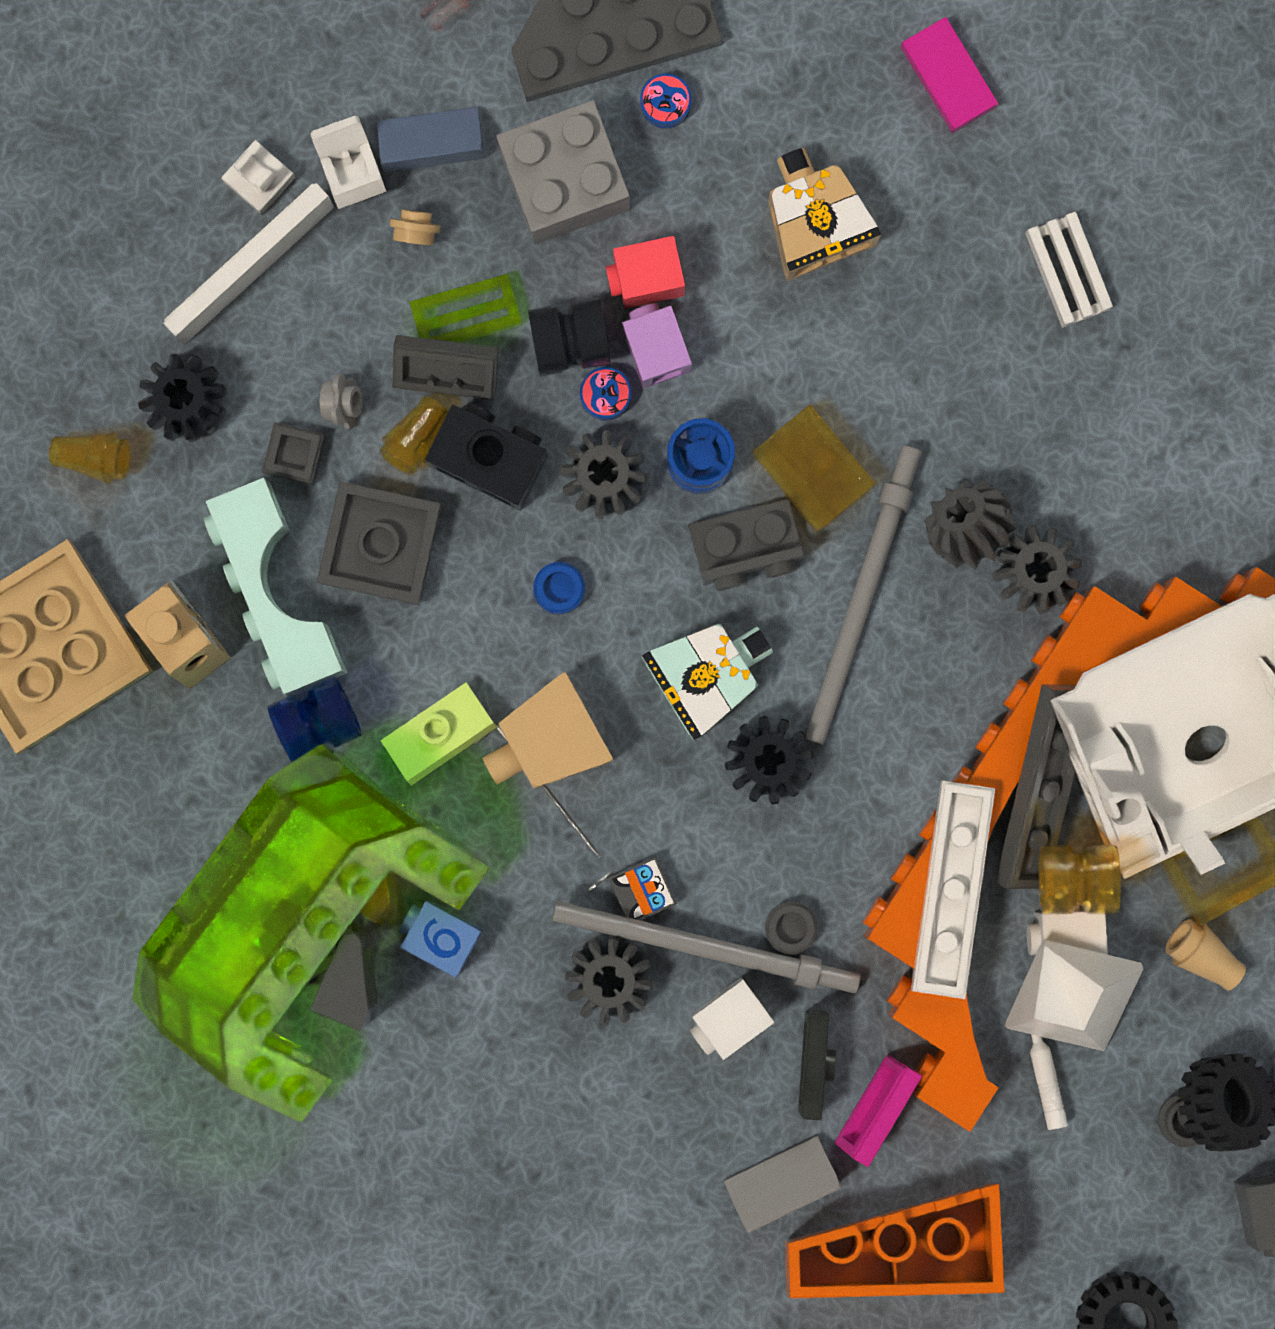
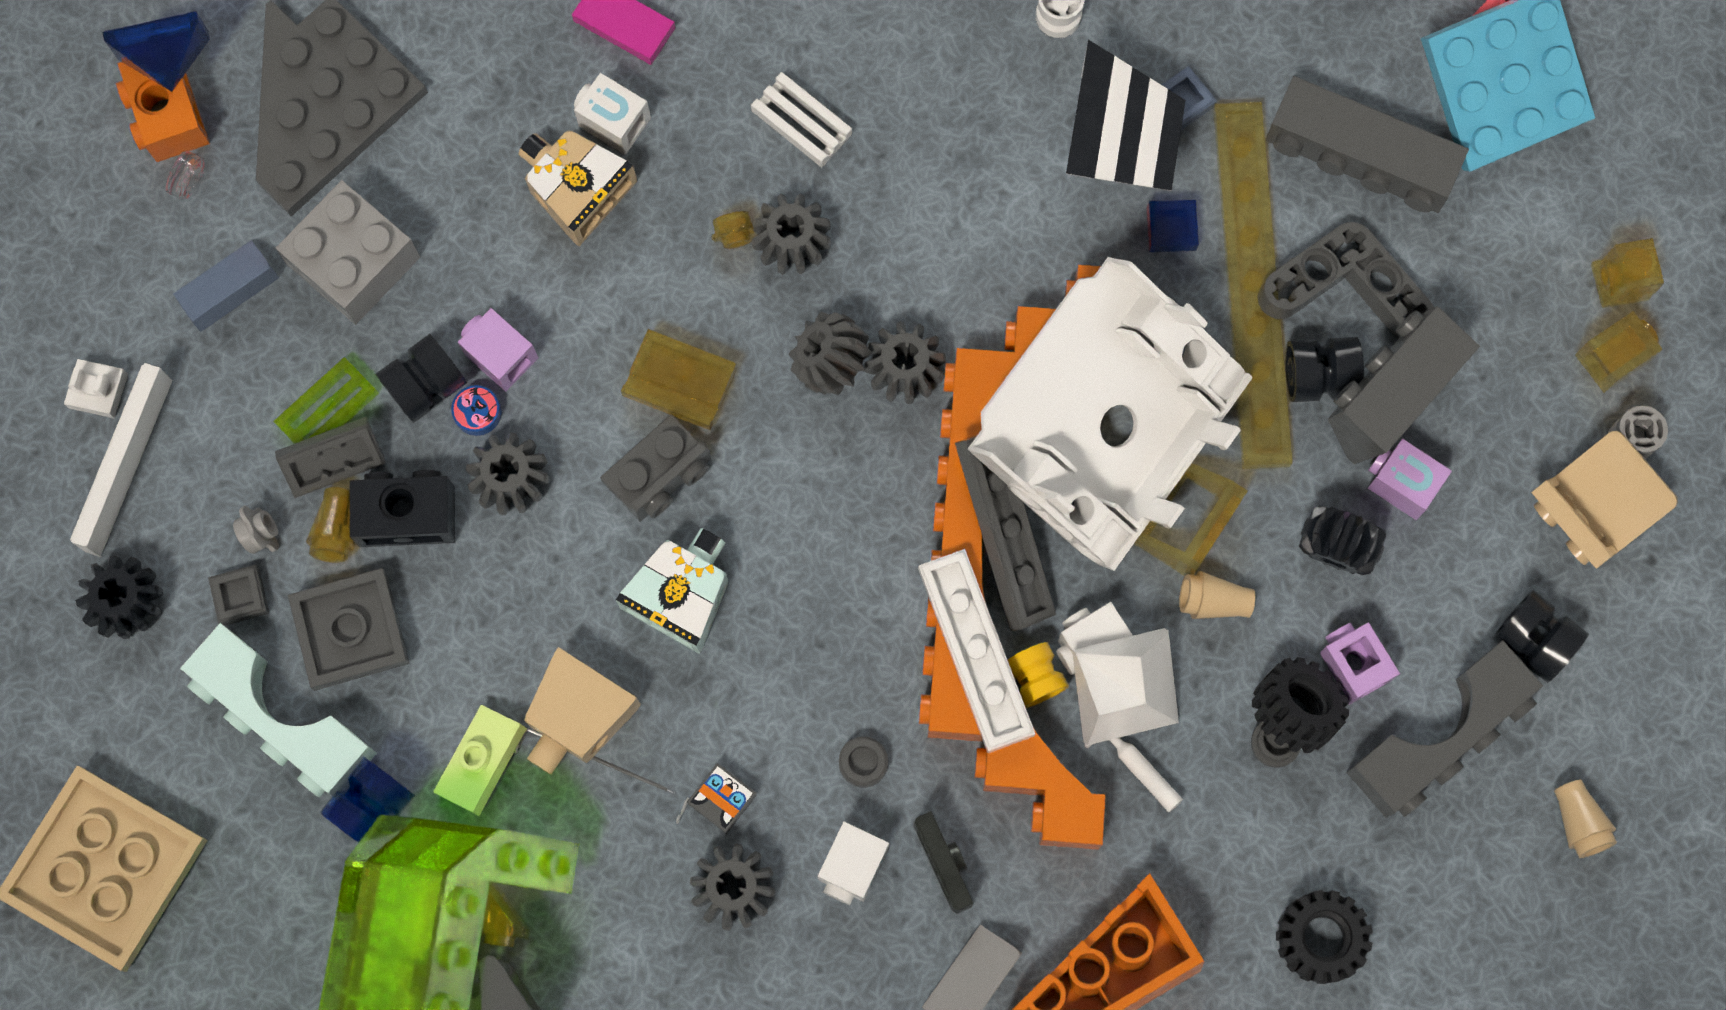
camera: 30 degrees left, 10 degrees down
(93, 455) = (66, 685): clear yellow cone -> none
(177, 635) = (211, 794): tan torso -> none
(348, 161) = (163, 334): white bracket -> none
(414, 227) = (247, 359): tan plate -> none
(439, 936) = (569, 928): medium blue brick -> none
(559, 588) = (520, 587): blue tile -> none
(646, 272) = (458, 294): coral brick -> none
(665, 101) = (404, 156): tile -> none
(700, 456) = (579, 415): blue wheel -> none
(755, 749) = (750, 632): black gear -> none
(804, 971) = (894, 791): light grey bar -> none
(877, 1110) = (1017, 872): dark pink tile -> none
(888, 165) = (611, 113): none -> white brick
(895, 499) = (760, 370): light grey bar -> none
(943, 347) = (733, 229): none -> clear yellow plate
(989, 397) = (791, 249): none -> dark grey gear
(997, 937) = (1036, 674): none -> yellow wheel
(1079, 879) = (1077, 584): clear yellow wheel -> none

